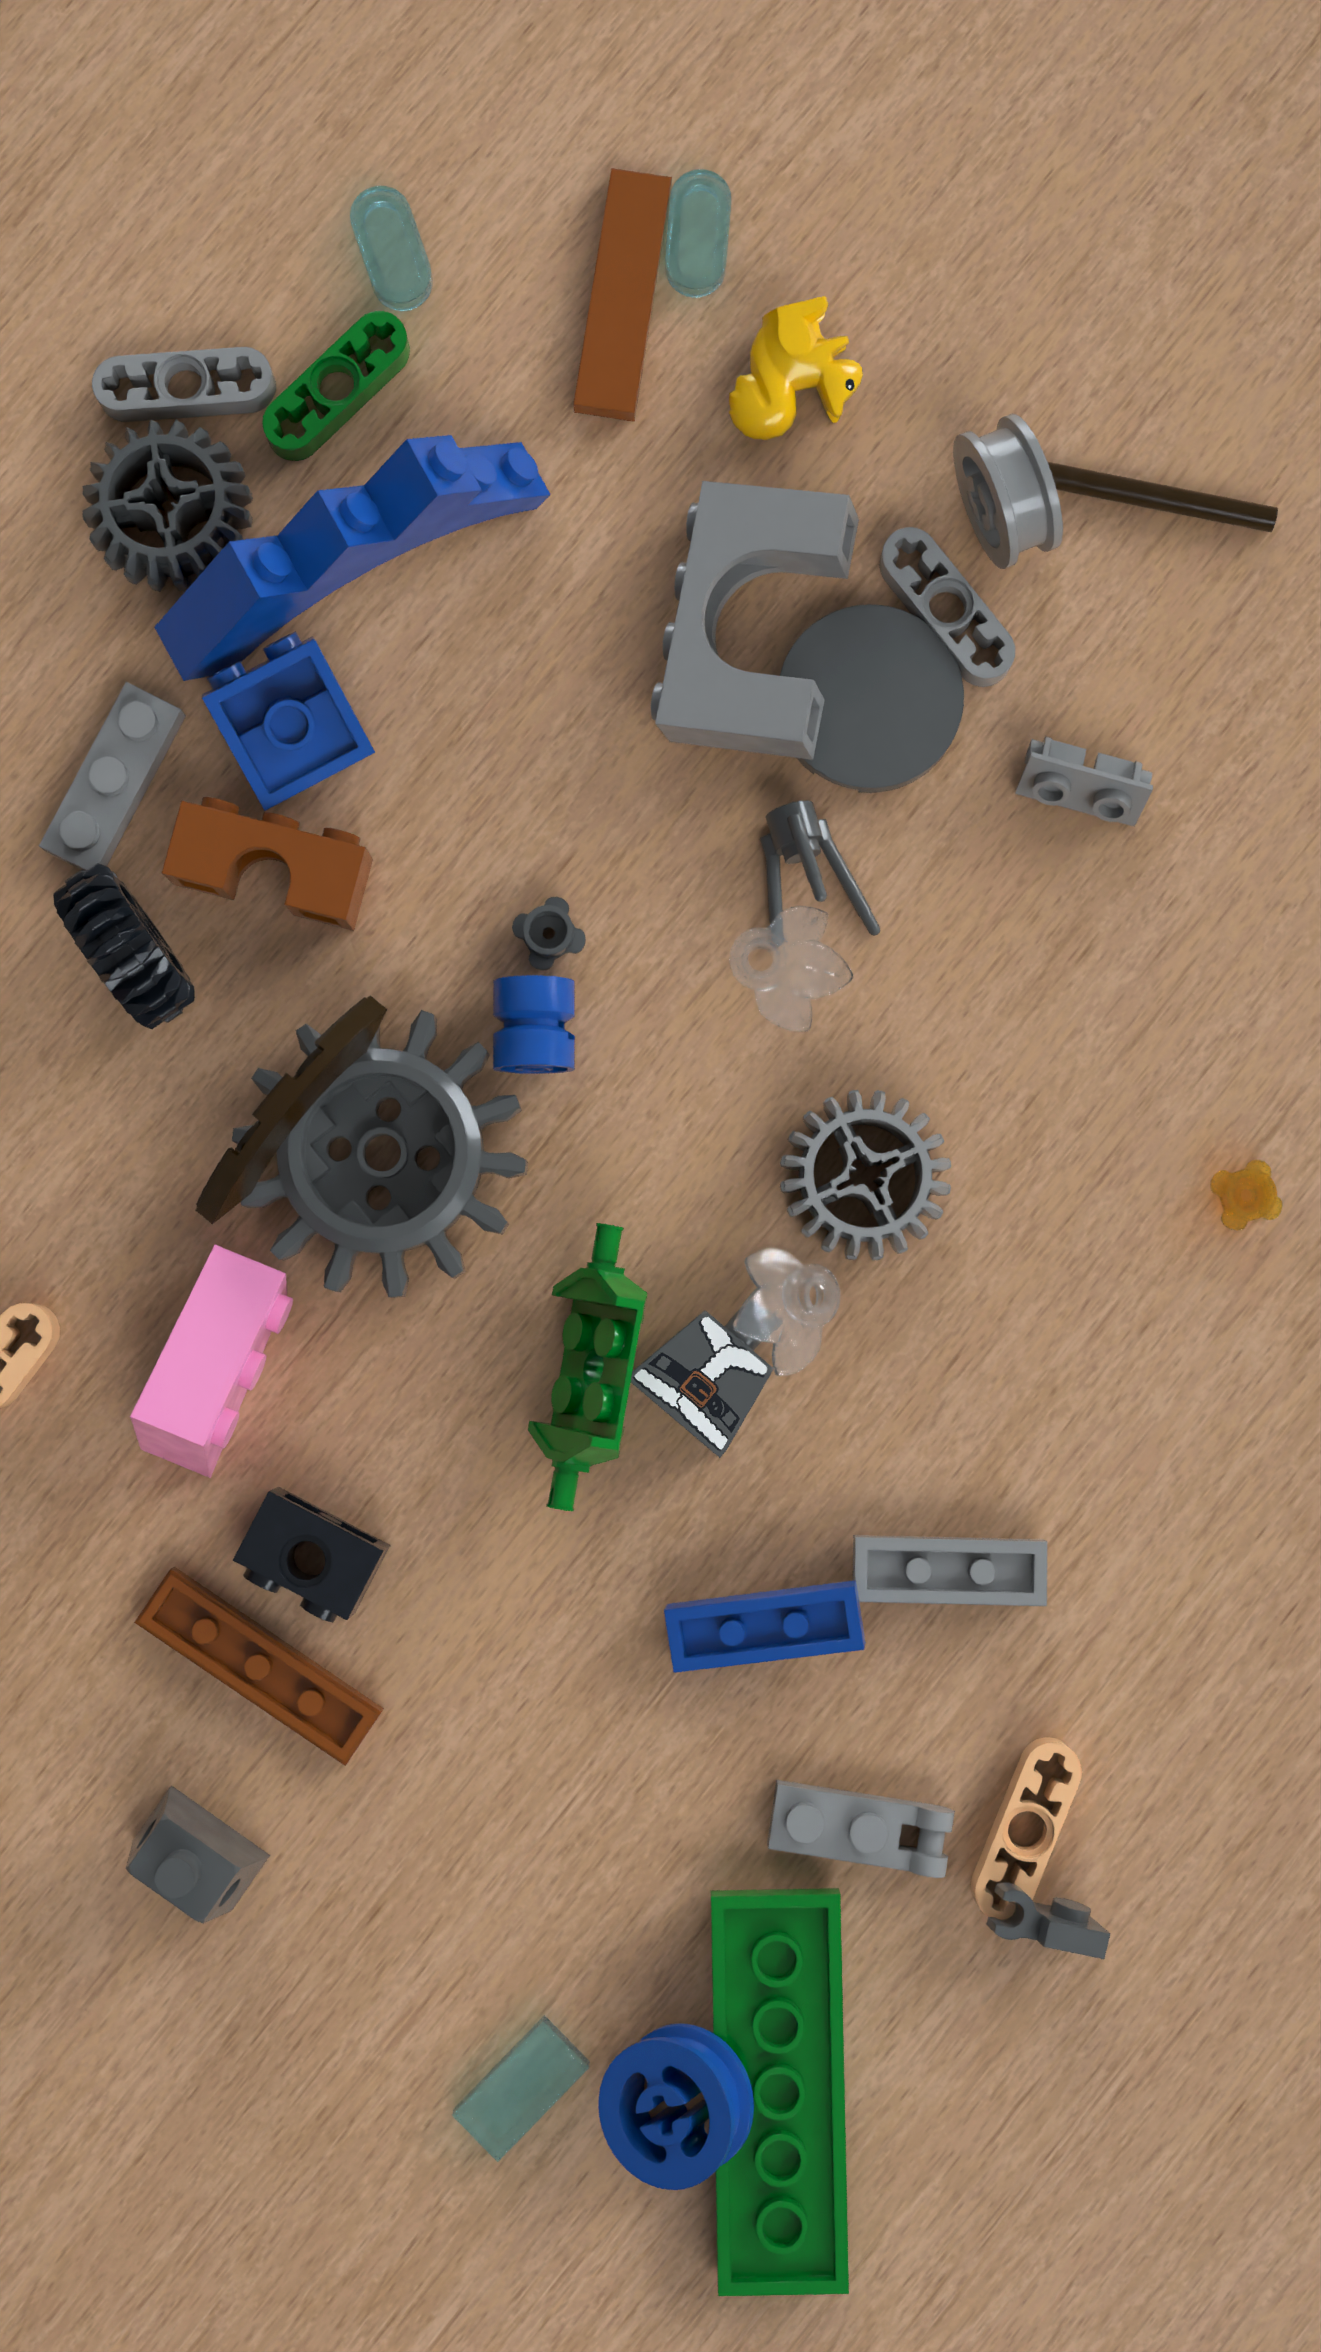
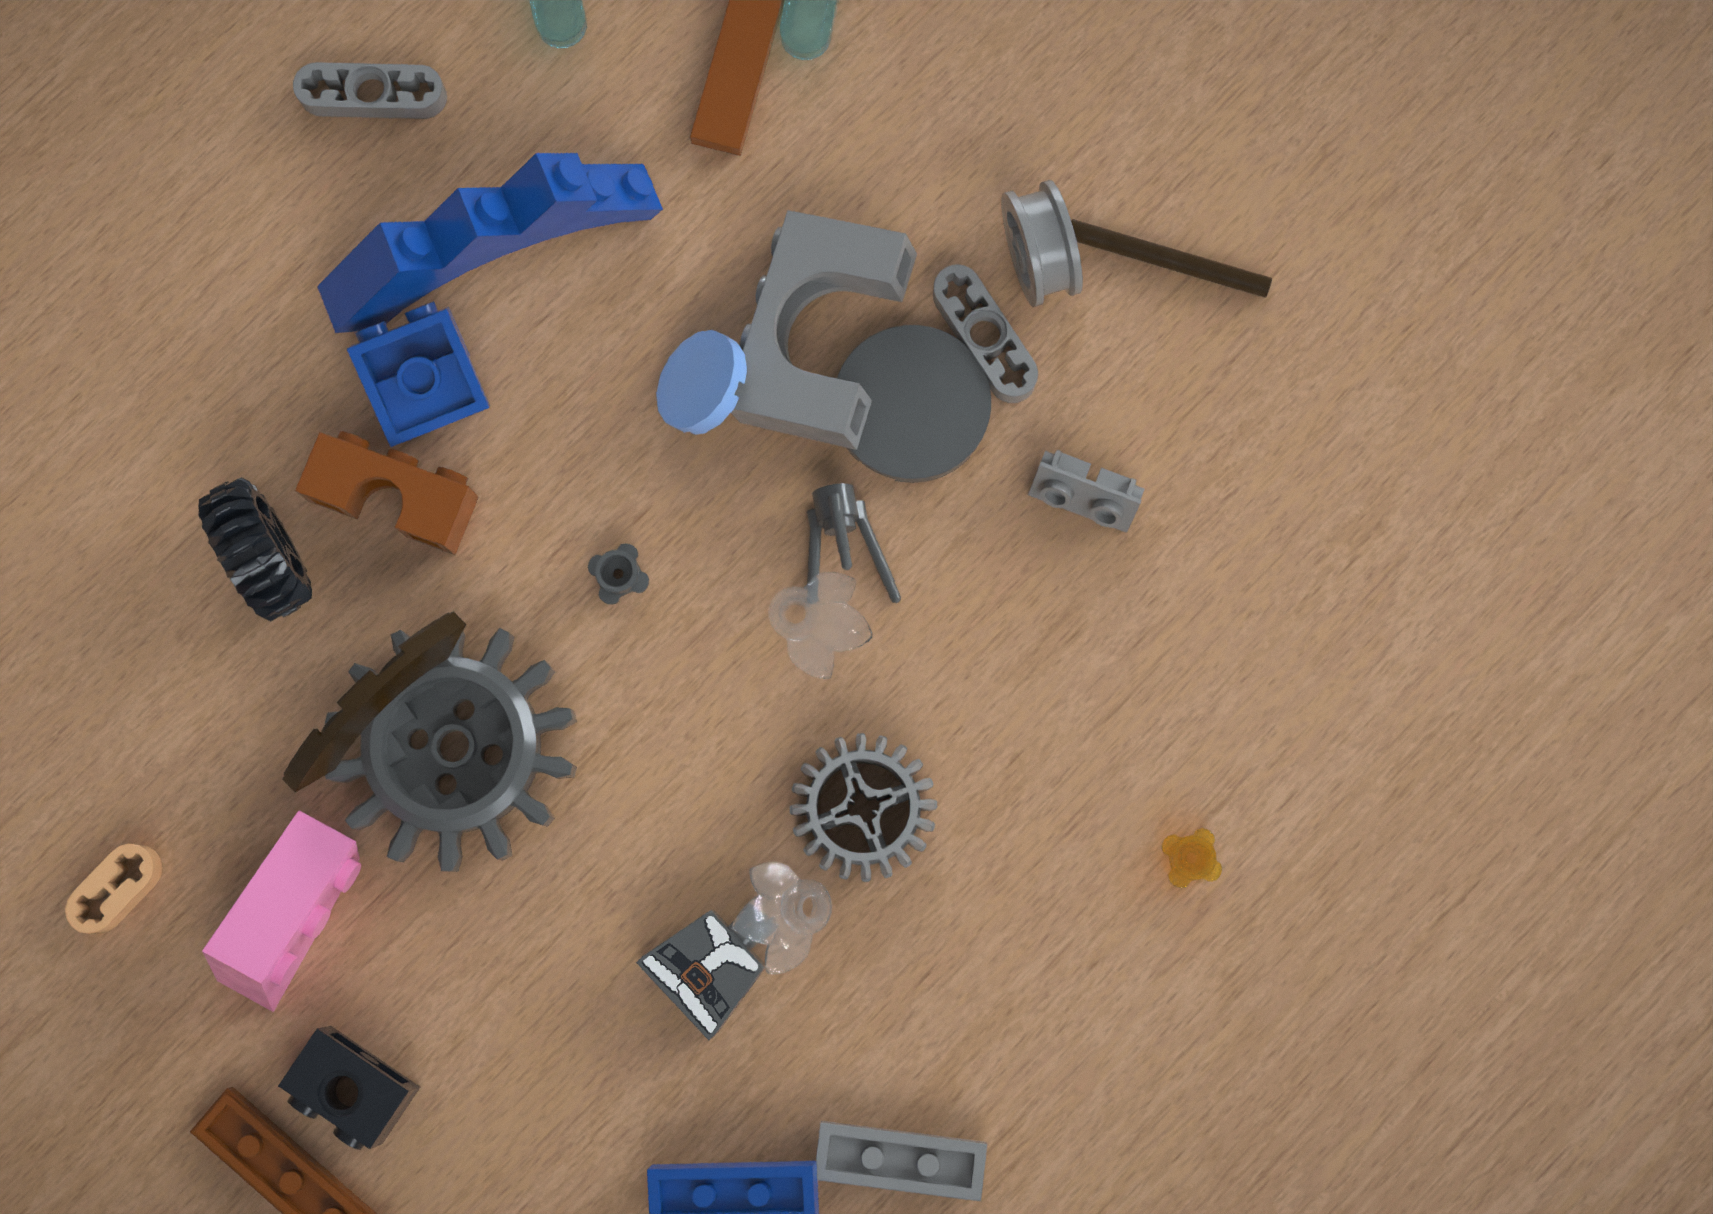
camera: 10 degrees right, 5 degrees down
(113, 778) = (268, 408): light grey plate -> none
(119, 508) = (303, 185): dark grey gear -> none
(336, 358) = (498, 81): green beam -> none
(533, 1024) = (594, 650): blue wheel -> none
(594, 1370) = (613, 947): green plate -> none
(622, 697) = (701, 382): none -> light blue tile
(788, 358) = (870, 117): yellow animal -> none

